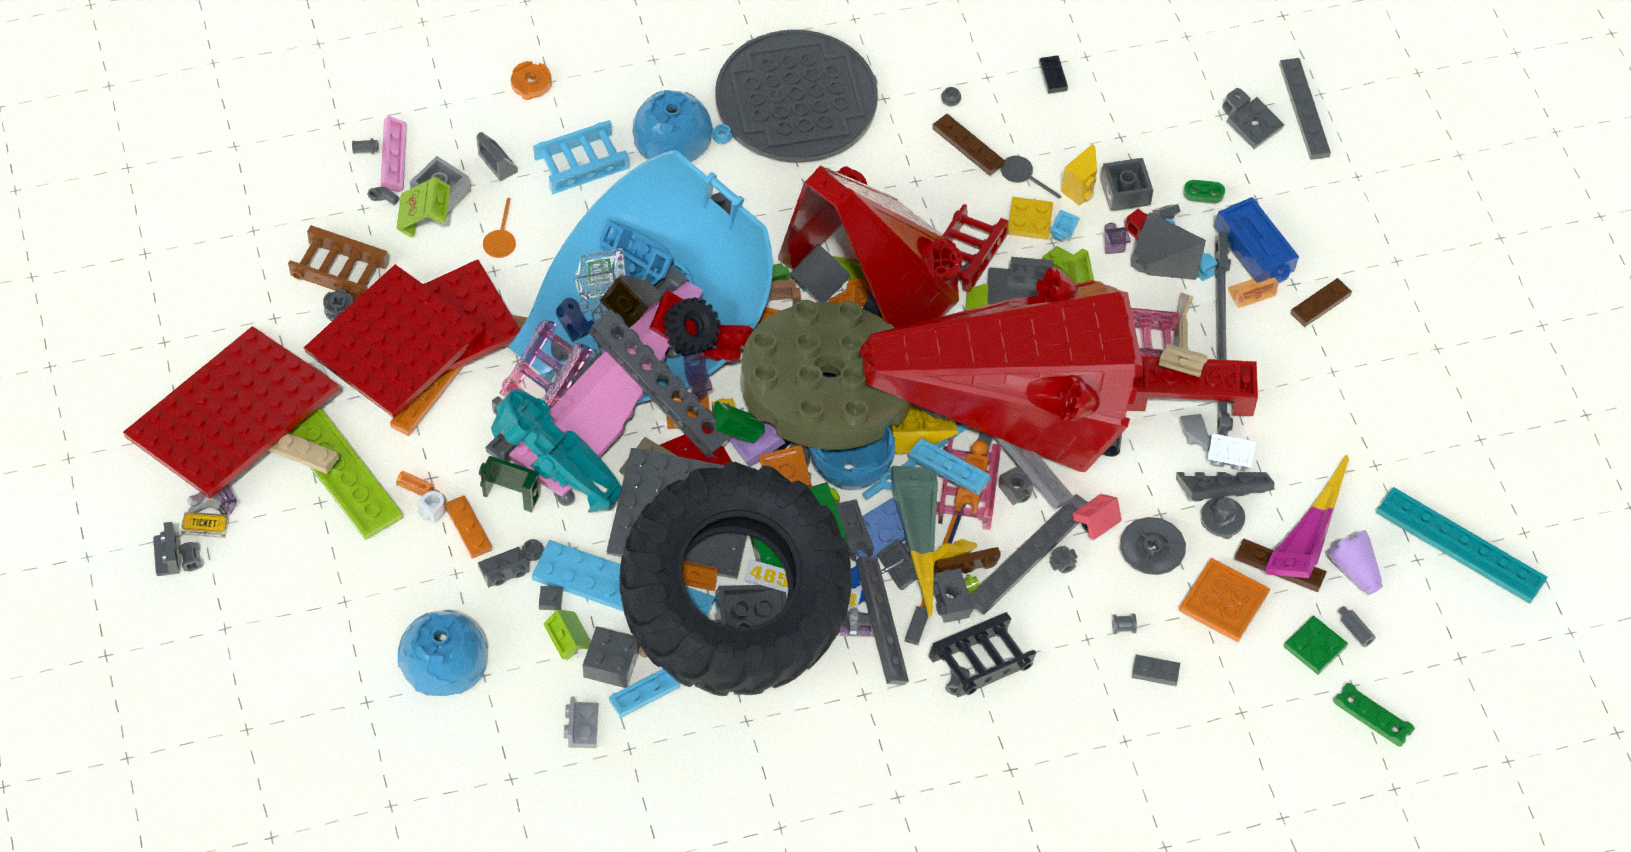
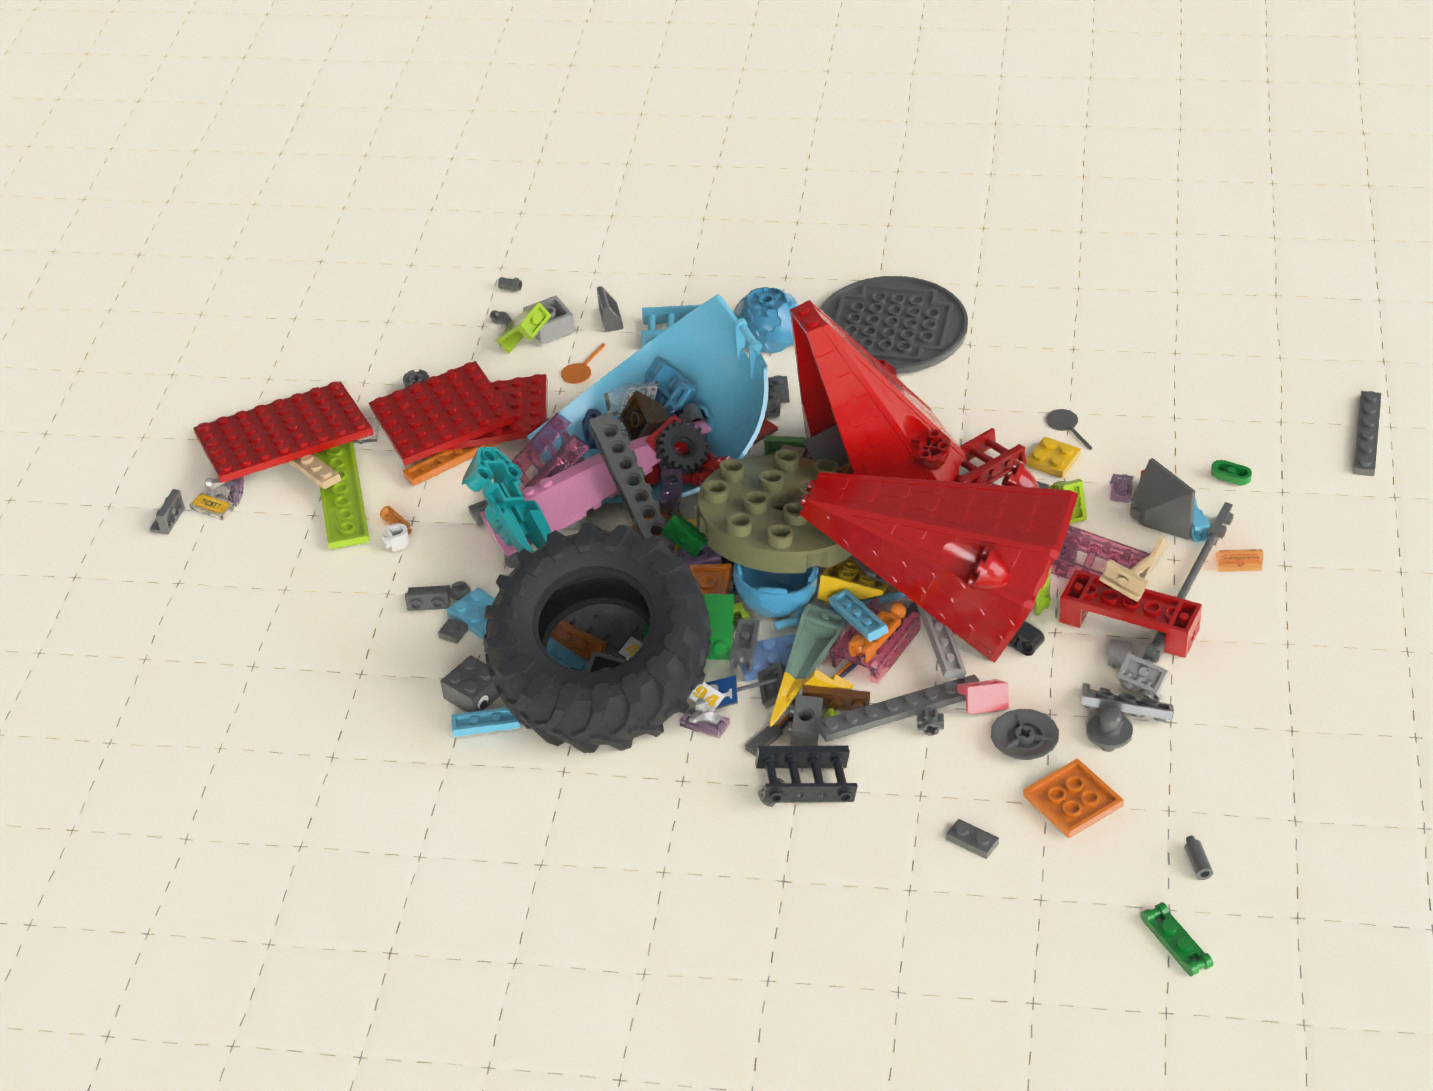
camera: 30 degrees right, 15 degrees down
(190, 556) = (183, 523): dark grey bush -> none
(338, 245) = (439, 341): dark orange fence -> none
(393, 153) = (528, 291): bright pink plate -> none
(445, 665) = (333, 642): dark azure piece -> none
(468, 527) = (418, 561): orange plate -> none
(511, 477) = (463, 524): dark green panel -> none
(530, 89) = (665, 272): orange plate -> none
(566, 633) = (447, 656): lime panel -> none
(582, 724) = (416, 730): light grey bracket -> none
(882, 621) = (728, 723): dark grey plate -> none
(951, 92) = (1030, 353): dark grey plate -> none
(968, 144) = (1026, 391): reddish brown plate -> none
(1013, 478) = (918, 652): dark grey brick -> none
(1053, 74) = (1134, 357): black plate -> none
(1064, 226) = (1080, 467): medium azure bracket -> none
(1080, 176) = (1114, 431): yellow slope -> none
(1124, 623) = (960, 789): bush -> none
(1126, 184) = (1156, 443): dark grey brick -> none
(1167, 211) = (1188, 477): dark grey plate -> none
(1245, 112) = (1301, 420): dark grey plate -> none
(1257, 241) = (1260, 517): blue piece -> none
(1258, 557) = (1146, 784): reddish brown plate -> none
(1304, 544) = (1171, 771): dark pink plate -> none
(1315, 645) = (1147, 862): green plate -> none
(1321, 302) = (1304, 585): reddish brown plate -> none
(1358, 562) = (1226, 798): lavender cone -> none
(1462, 545) = (1349, 819): teal plate -> none

